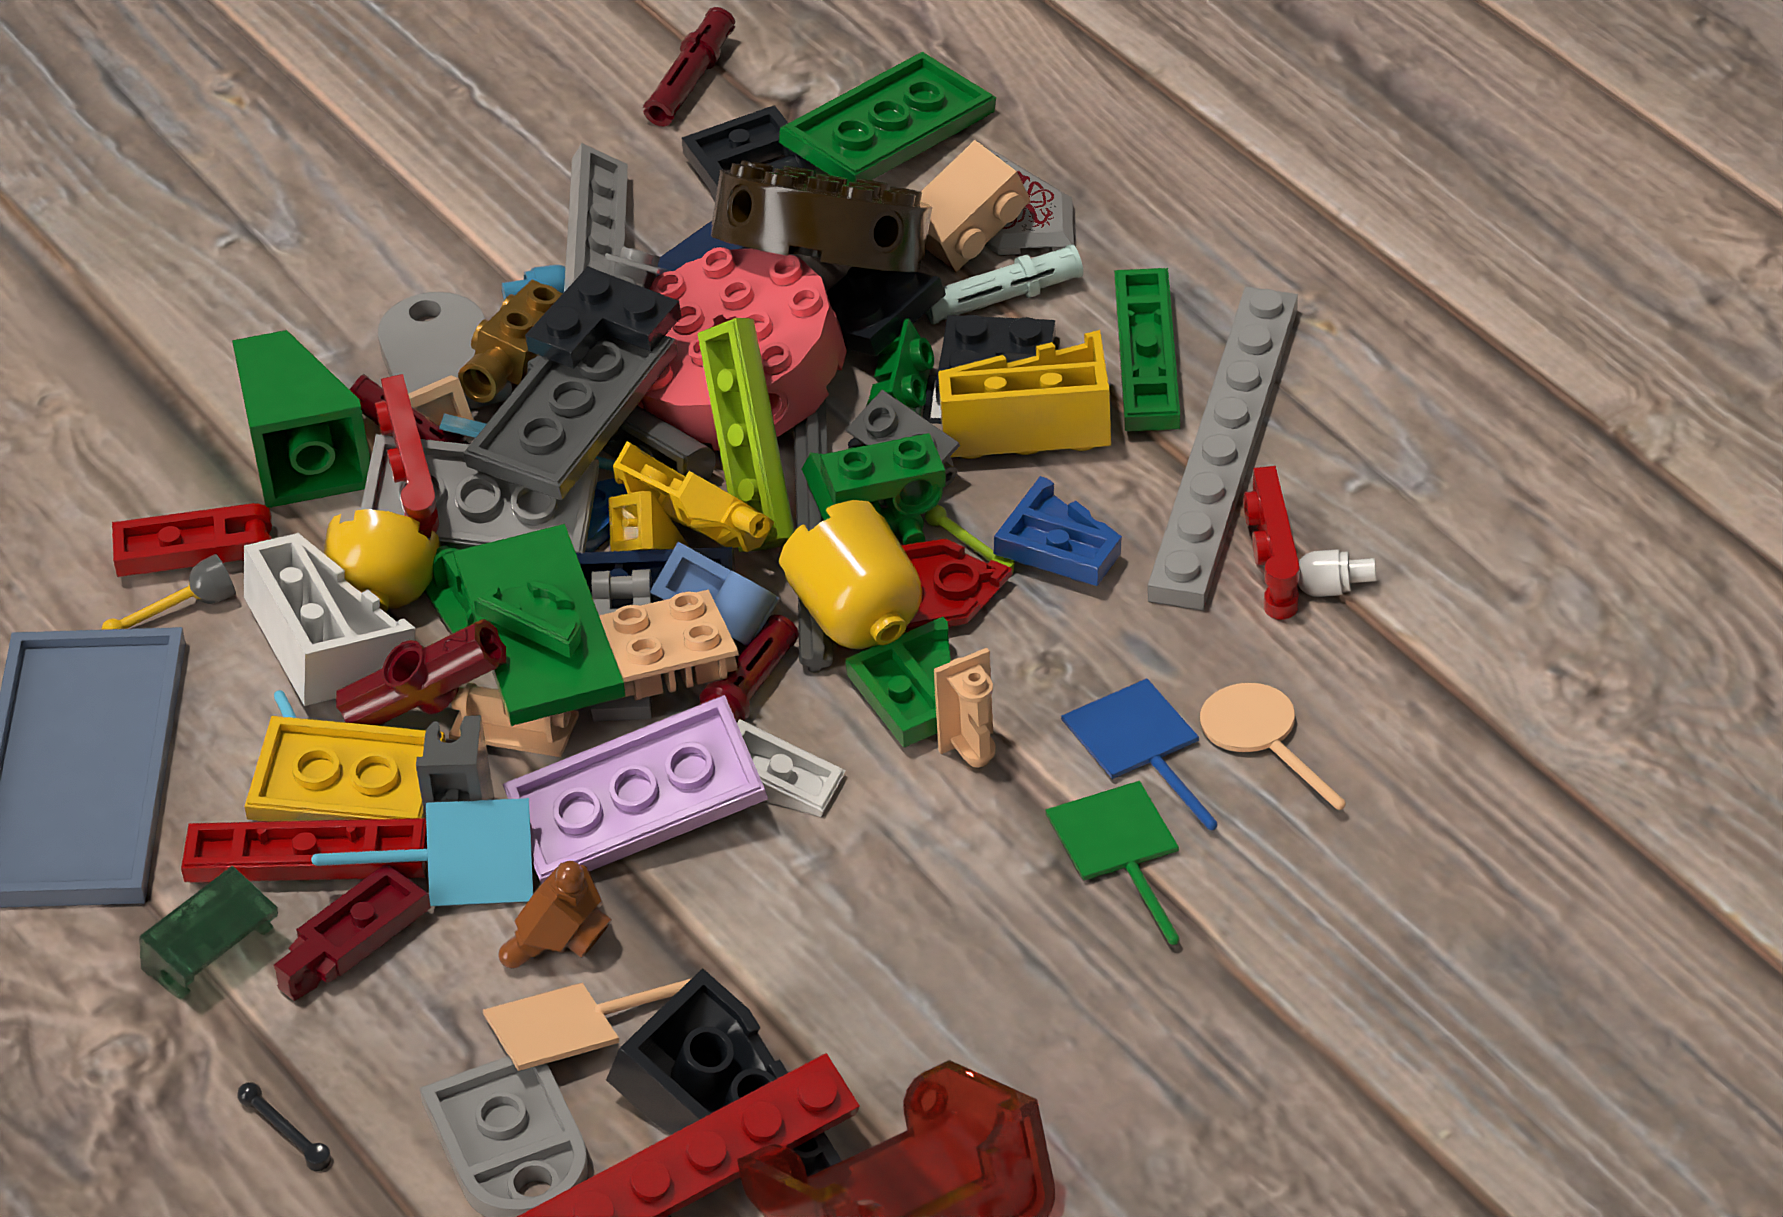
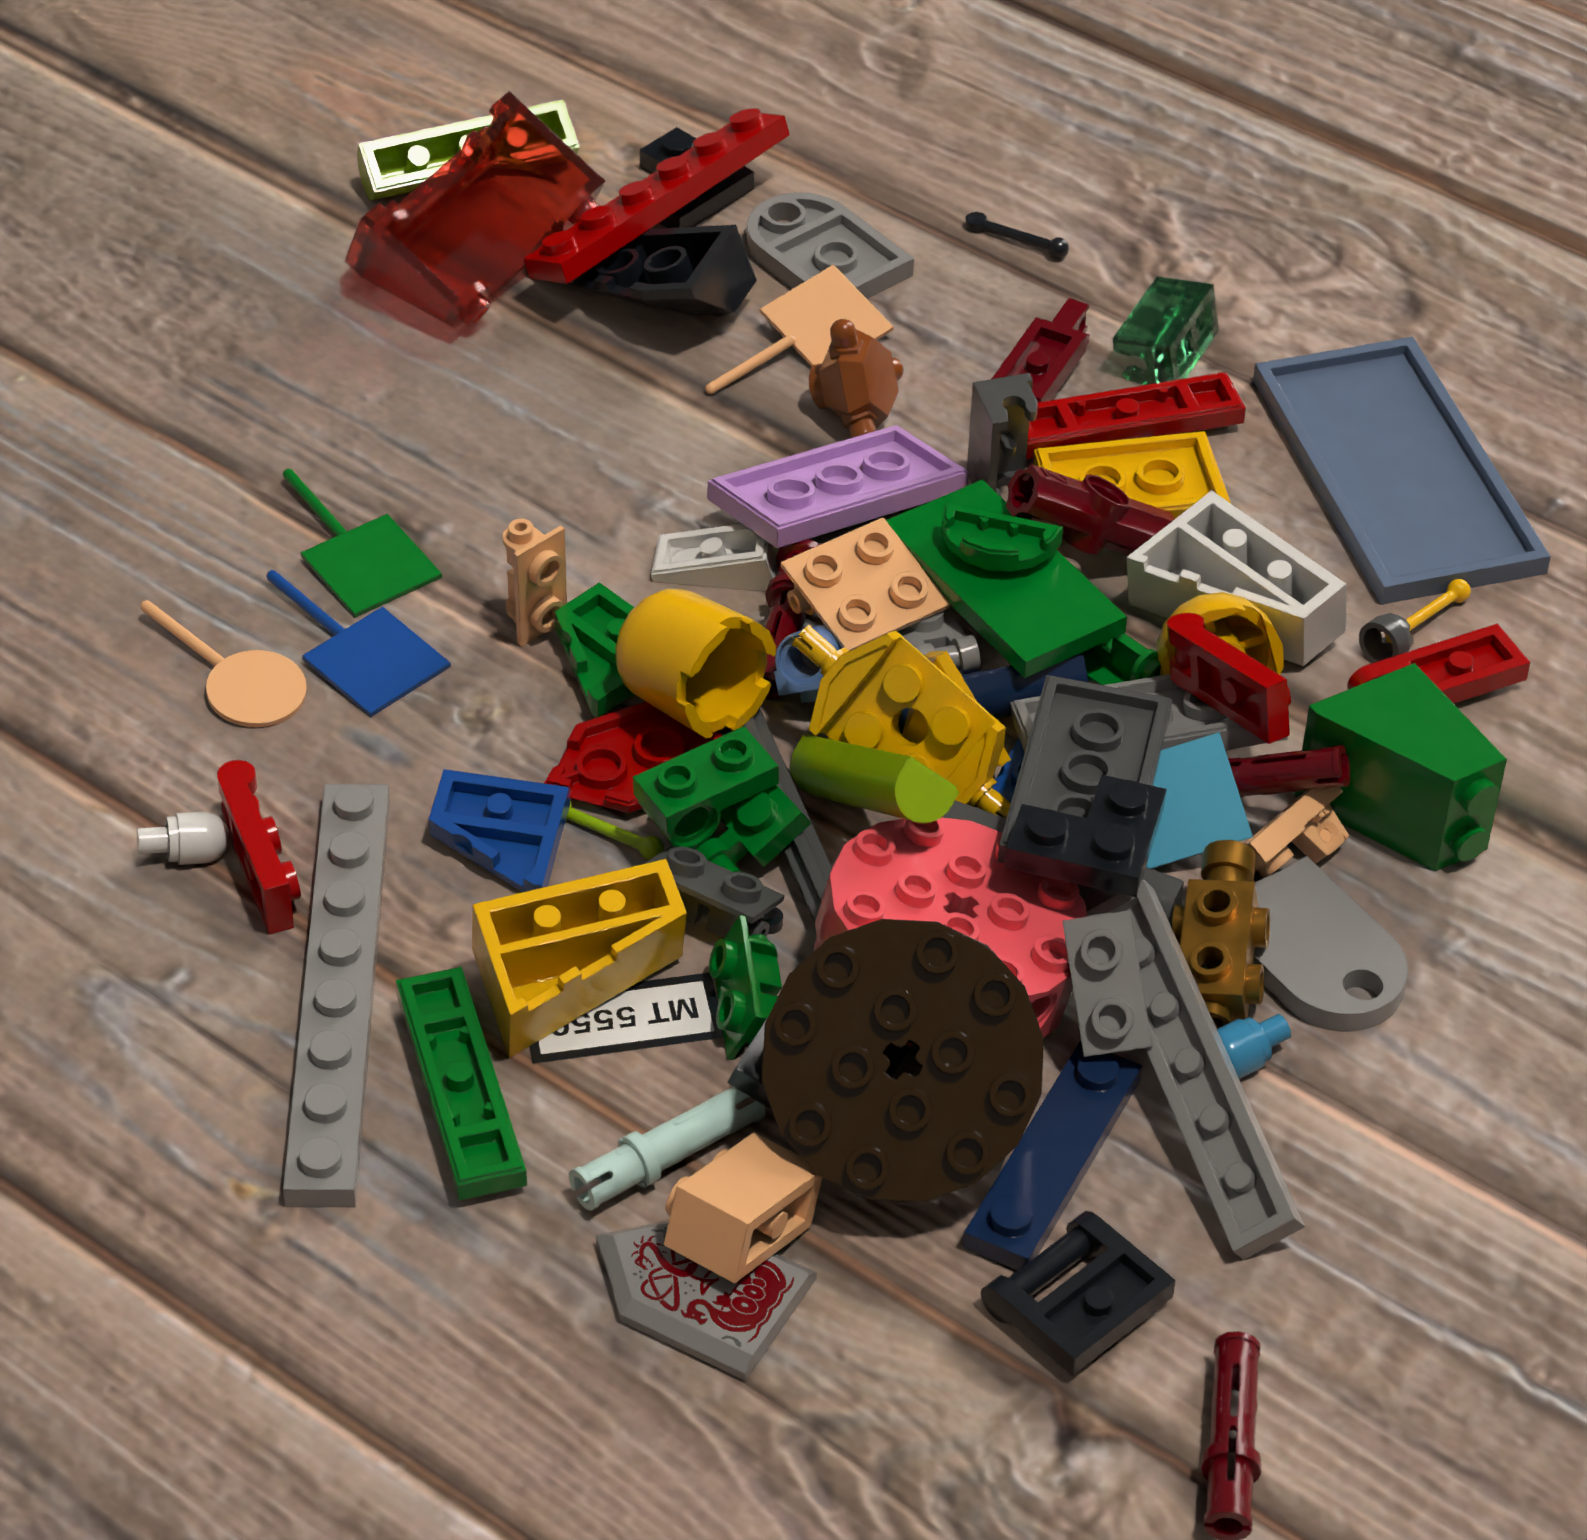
camera: 160 degrees right, 0 degrees up
(473, 852) = (962, 415): medium azure piece -> none
(887, 119) = (907, 1373): green tile -> none
(979, 338) = (663, 1069): black plate -> none

